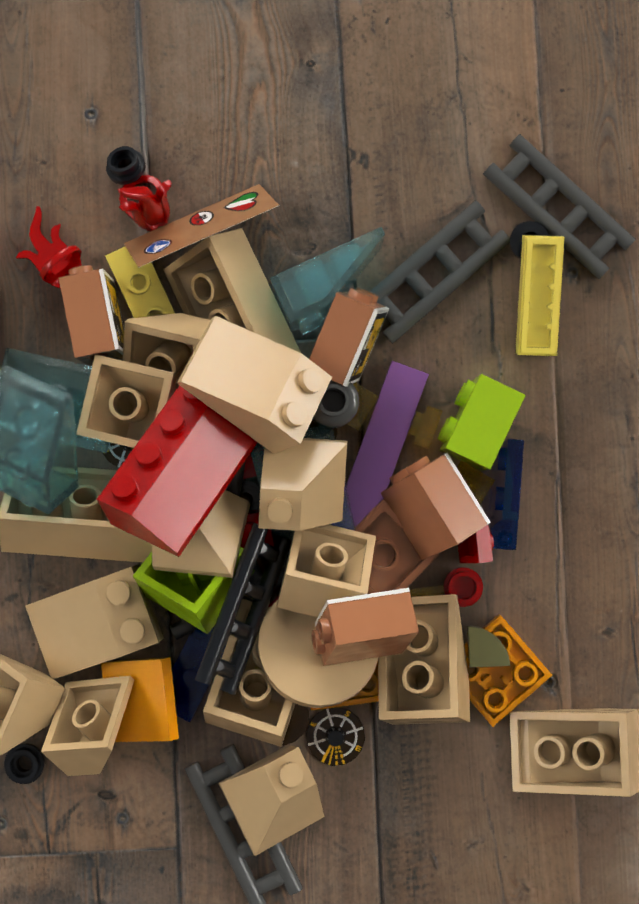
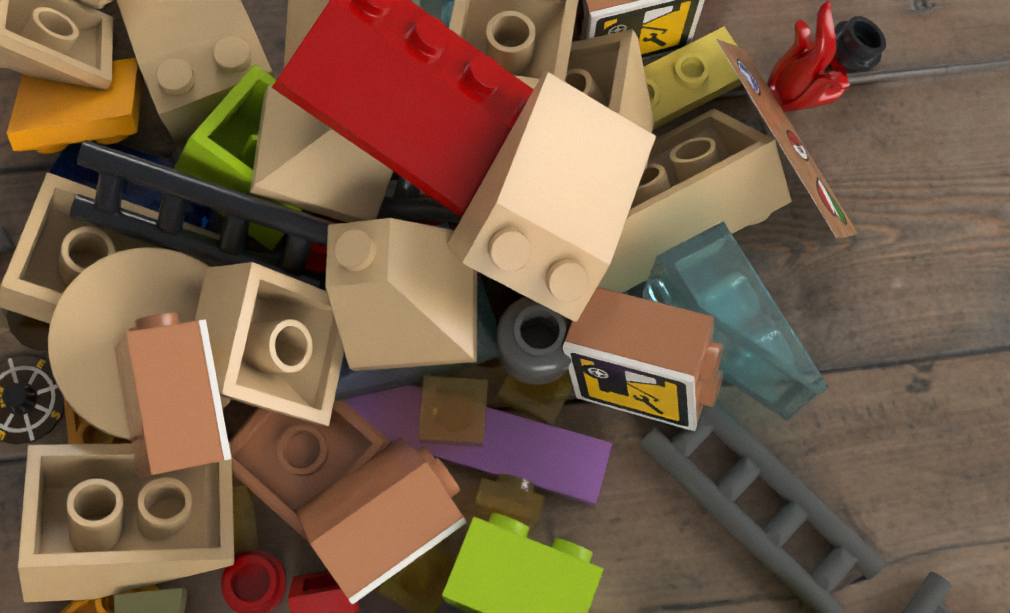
camera: 80 degrees right, 15 degrees down
(369, 458) = (453, 411): none -> clear yellow plate

